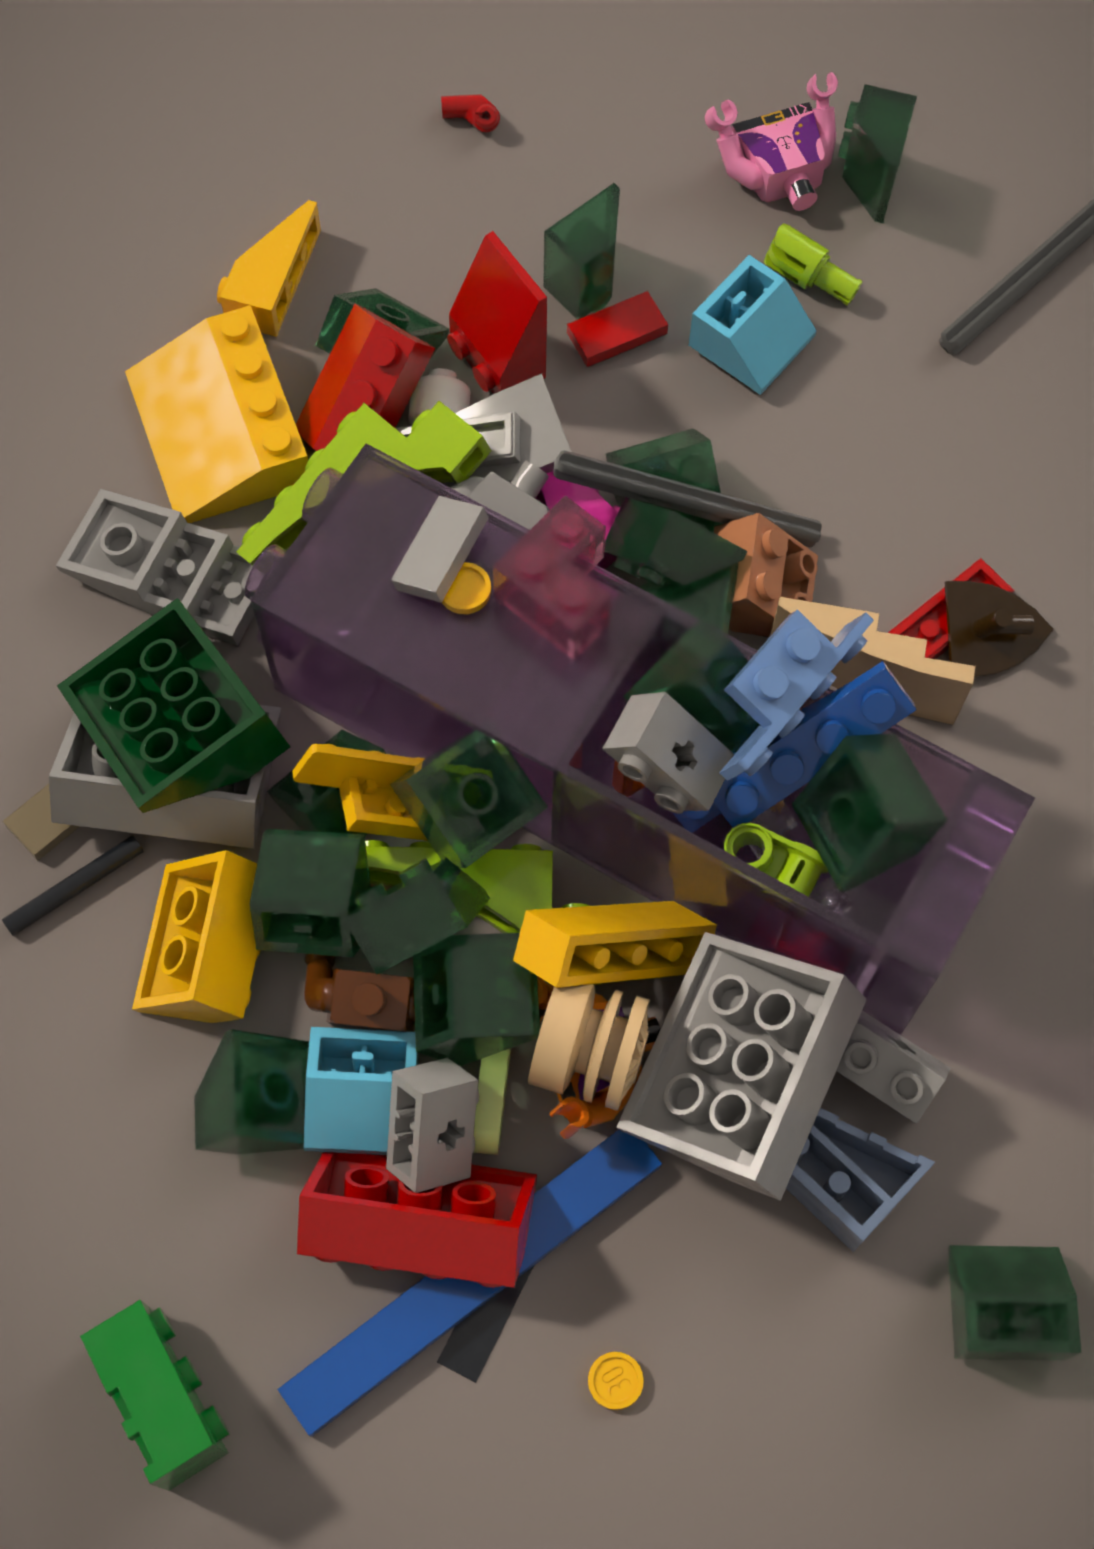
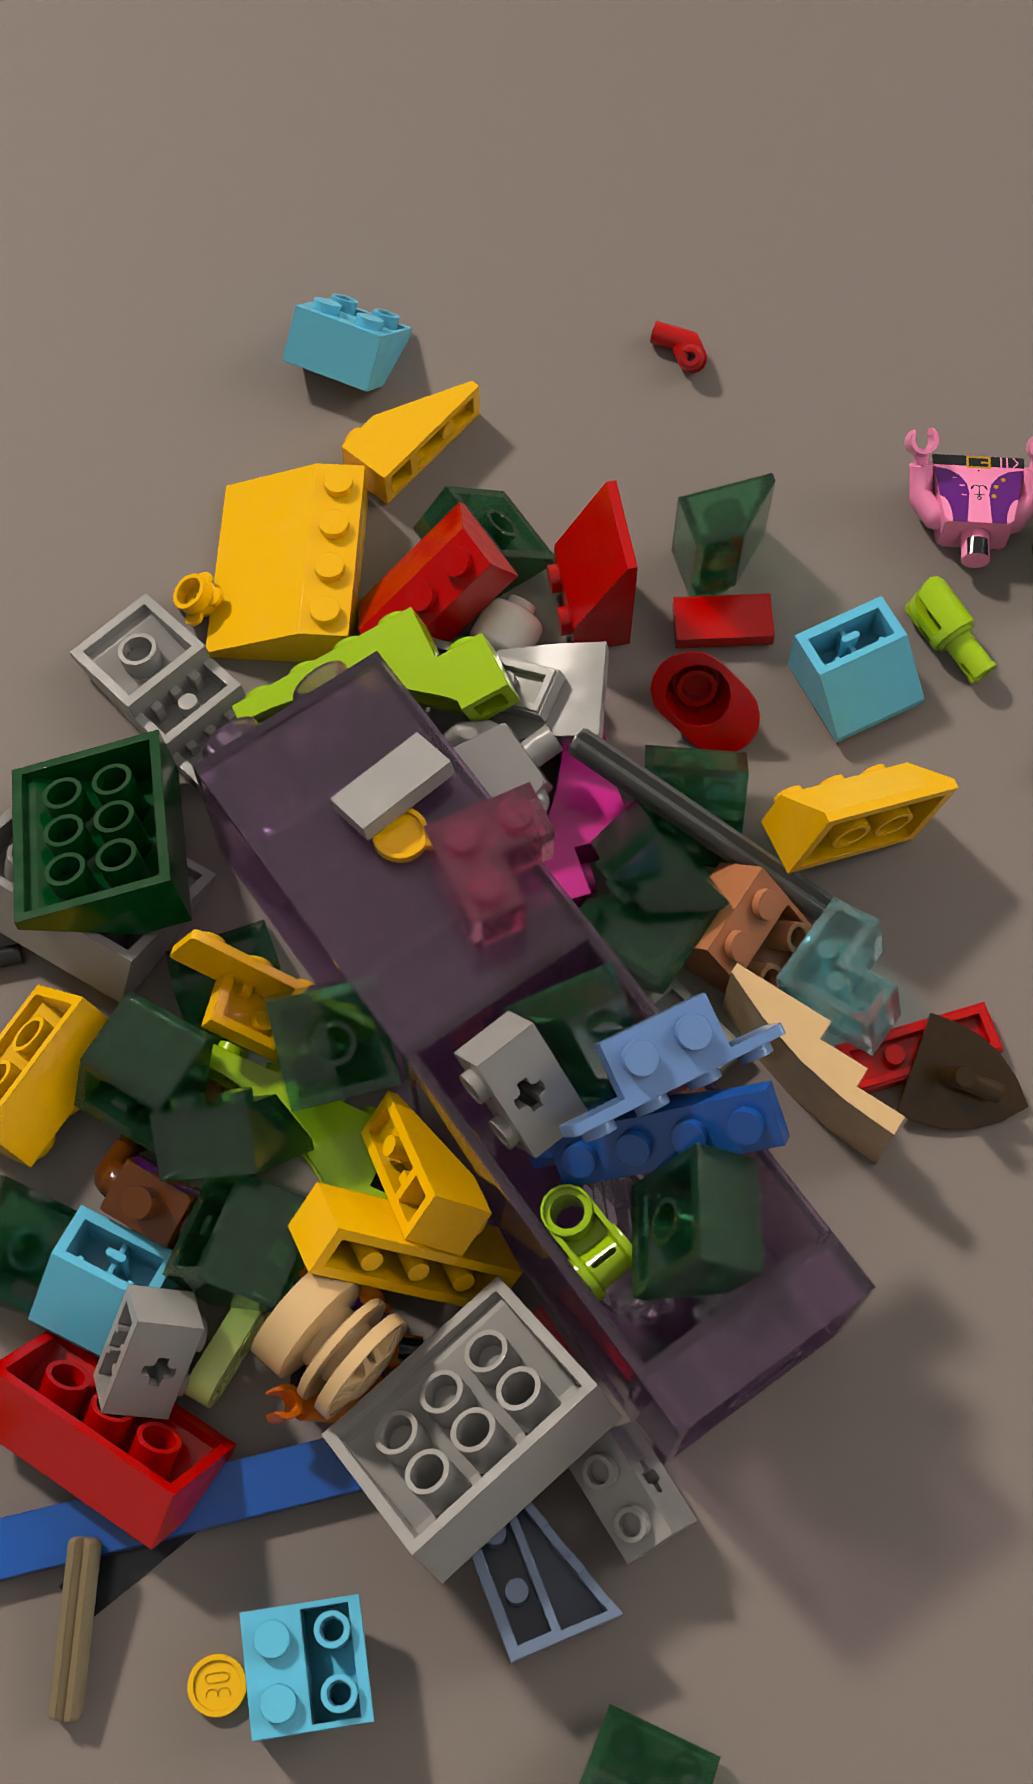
camera: 25 degrees right, 0 degrees up
(148, 476) = (197, 597): none -> yellow plate
(175, 207) = (345, 341): none -> medium azure slope
(473, 1387) = (75, 1629): none -> dark tan axle
(603, 877) = (423, 1180): none -> yellow slope
(639, 398) = (705, 701): none -> red piece
(690, 1327) = (306, 1668): none -> medium azure slope
(809, 442) = (854, 813): none -> yellow slope
(856, 579) = (836, 979): none -> clear light blue brick

